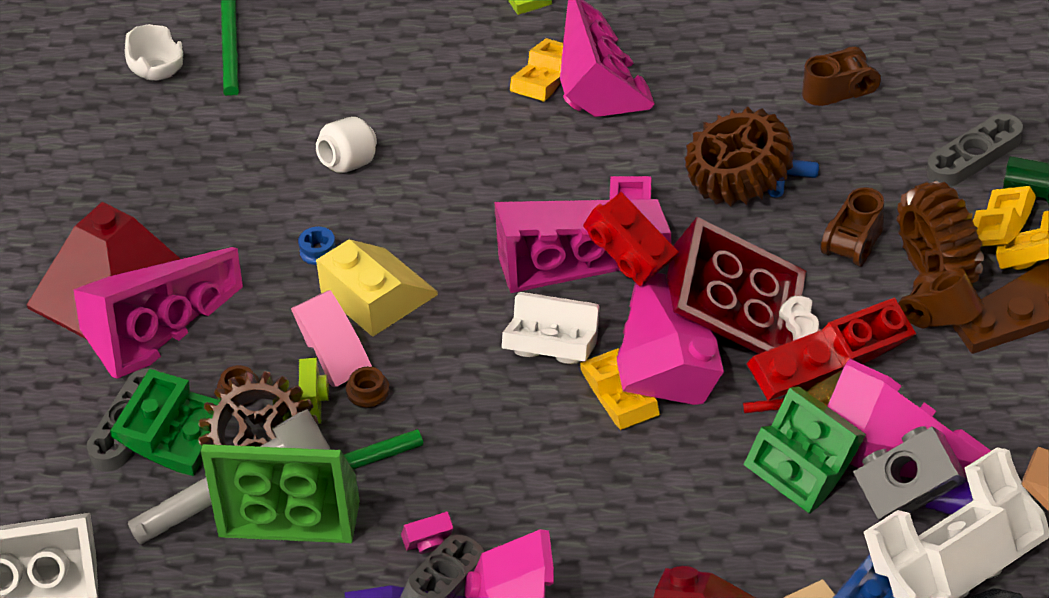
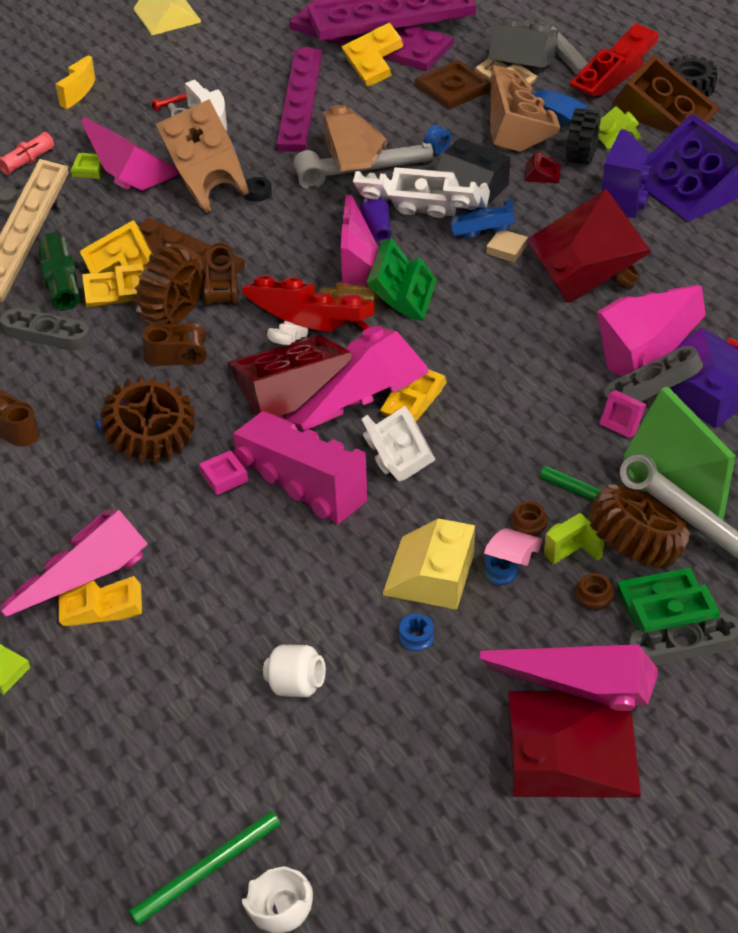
camera: 125 degrees left, 0 degrees up
(629, 238) = (300, 410): red bracket -> none
(936, 474) = (392, 217): brick -> none

